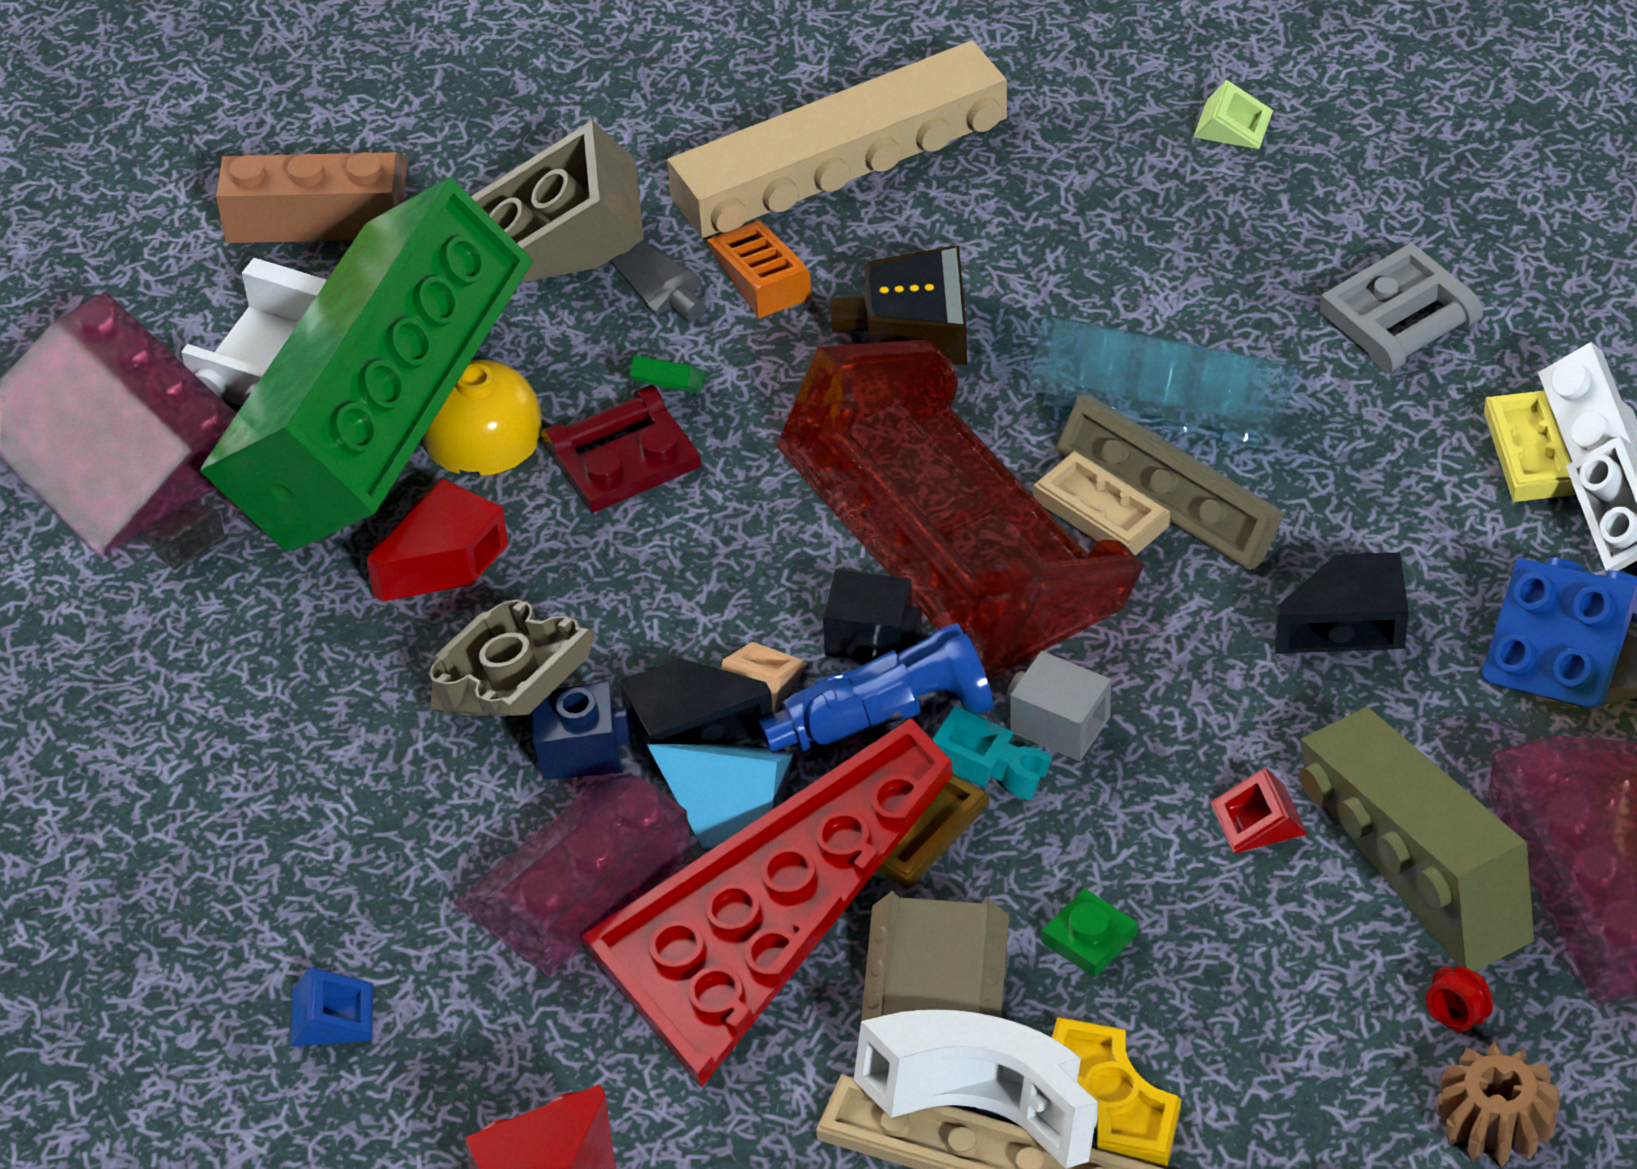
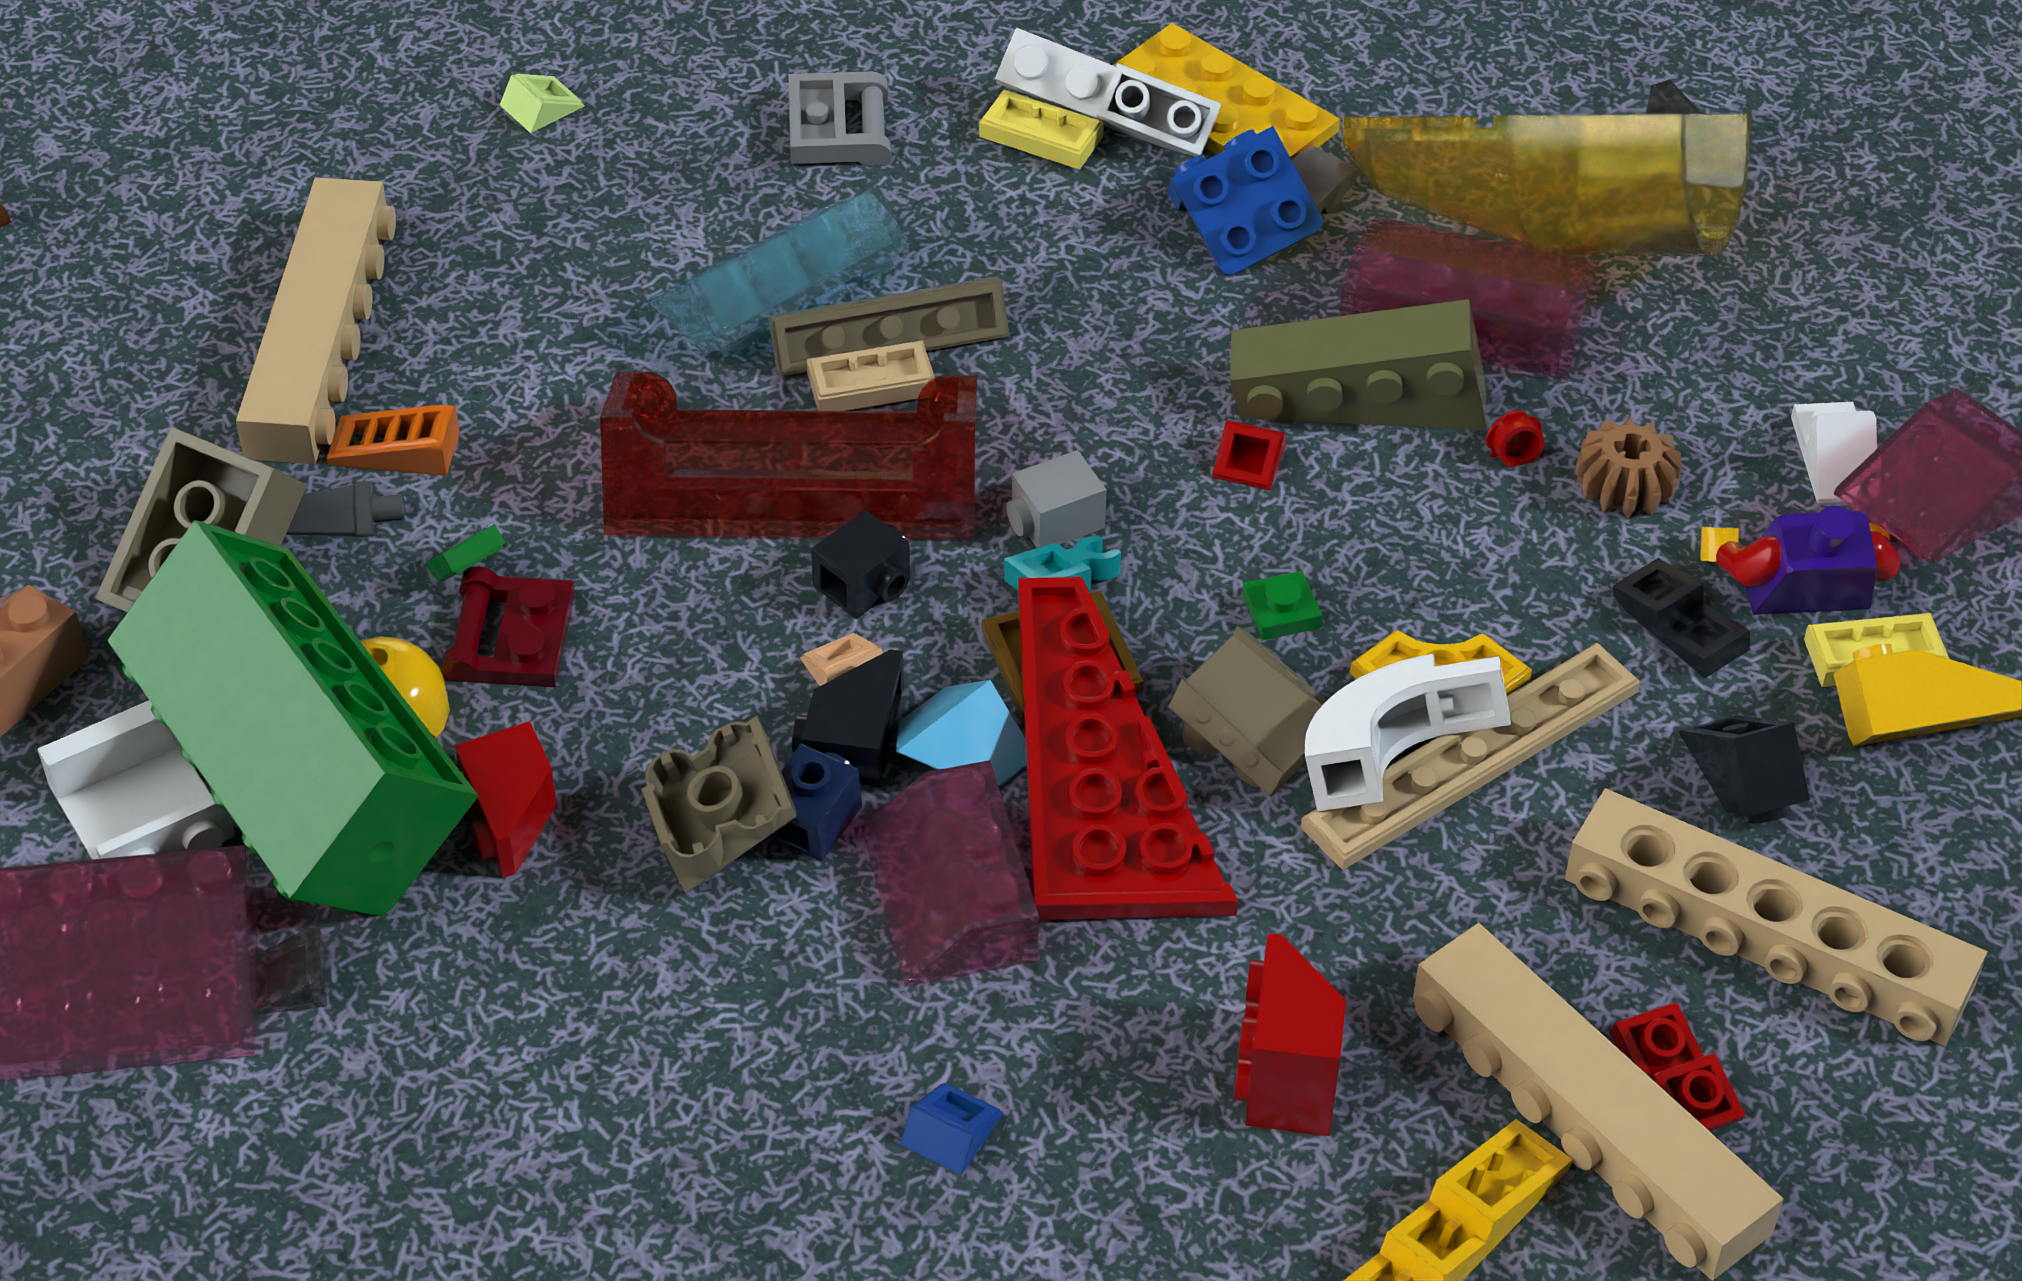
camera: 60 degrees left, 0 degrees up
(880, 692) = (957, 588): blue piece -> none
(908, 301) = (554, 371): torso -> none
(1346, 606) = (1112, 294): black slope -> none

